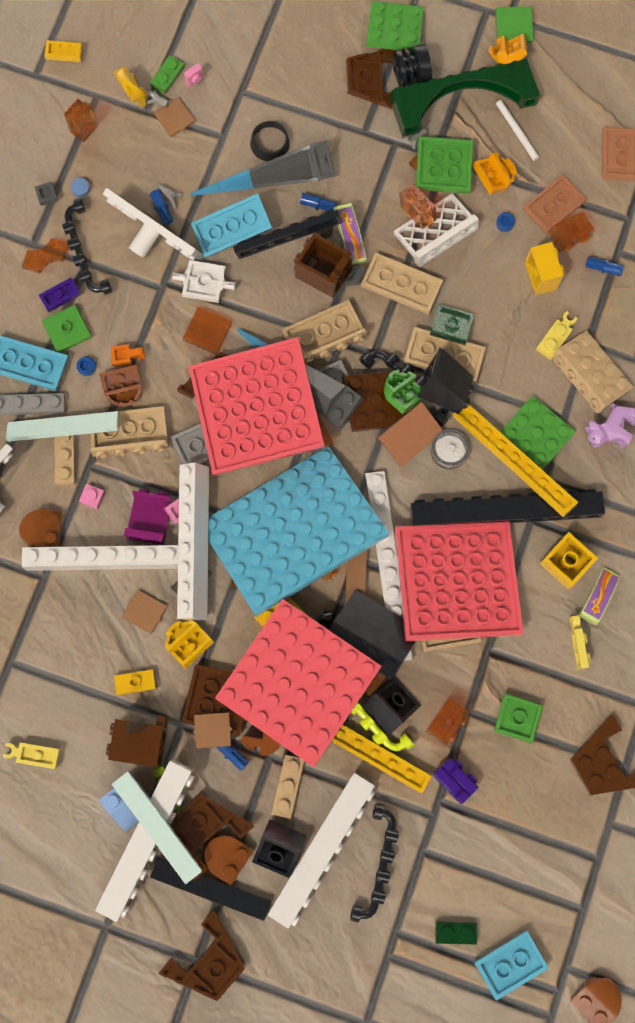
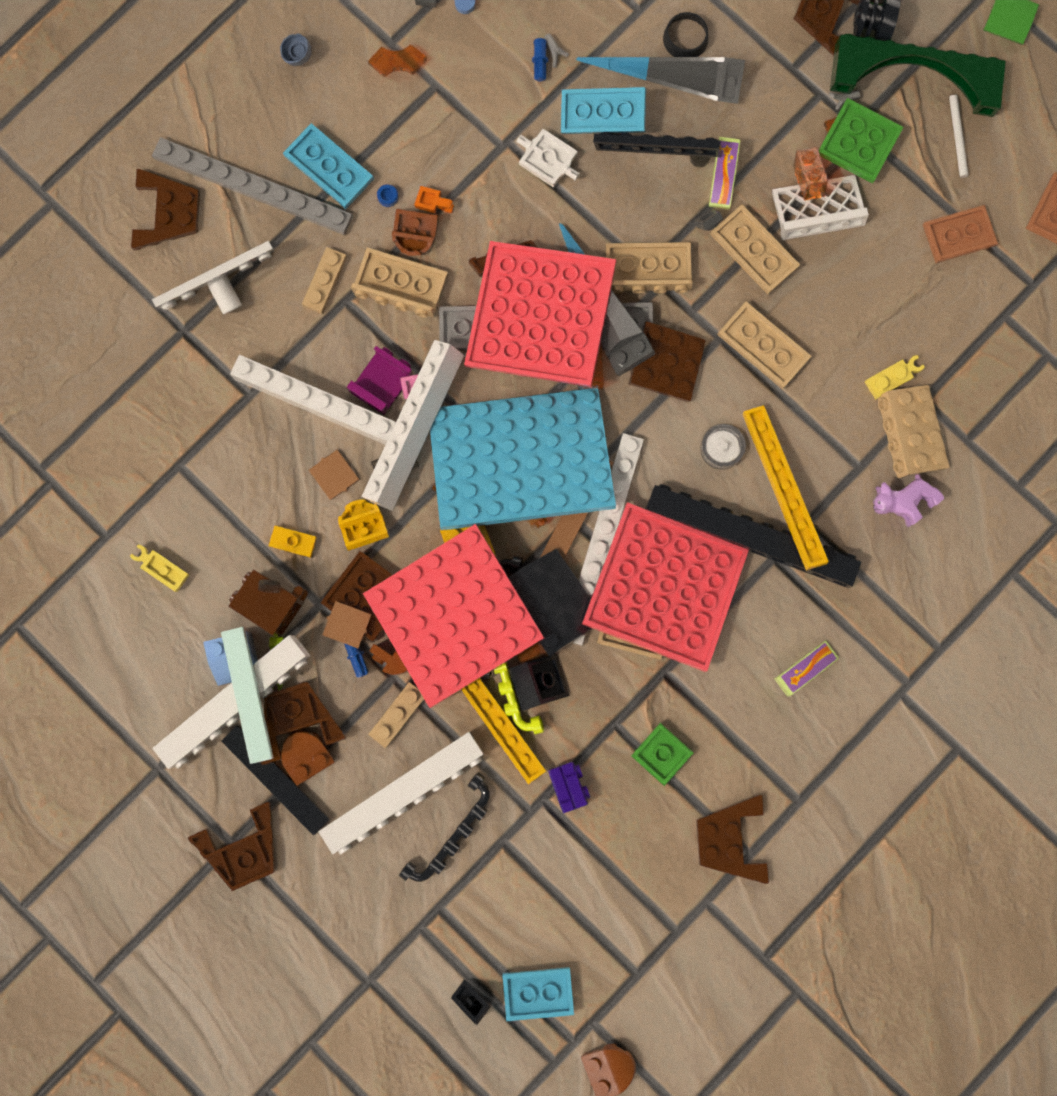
camera: 30 degrees right, 5 degrees up
(41, 528) = (268, 344): dark orange slope -> none
(59, 295) = (393, 108): dark purple plate -> none
(62, 426) = (335, 248): light aqua tile -> none
(66, 329) = (384, 147): bright green plate -> none
(75, 244) = (433, 61): black bar -> none
(91, 496) = (333, 333): bright pink plate -> none
(150, 230) = (516, 79): white plate -> none
(207, 330) = (528, 211): clear orange tile -> none
(279, 848) = (360, 771): black slope -> none
(317, 202) = (705, 124): blue axle -> none
(330, 268) = (686, 201): reddish brown container -> none
(391, 361) = (723, 364): black bar -> none
(402, 390) = (701, 364): bright green slope -> none
(410, 434) = (688, 412): nougat tile -> none
(446, 383) = (751, 376): black slope -> none
(449, 710) = (594, 713): clear orange brick -> none
(452, 324) = (787, 316): clear green tile -> none
(456, 933) = (498, 936): dark green plate -> none
(460, 998) = (471, 1001): none -> black slope
(495, 173) = (912, 172): light orange slope -> none
(505, 222) = (897, 231): blue tile -> none
(509, 51) = (990, 44): light orange slope -> none
(537, 432) = (823, 470): bright green plate -> none
(544, 268) = (914, 298): yellow brick -> none
(568, 560) = (791, 617): yellow brick -> none
(571, 231) = (973, 266): clear orange brick -> none
(579, 641) = (762, 705): light yellow plate -> none
(604, 266) = (980, 324): blue axle -> none

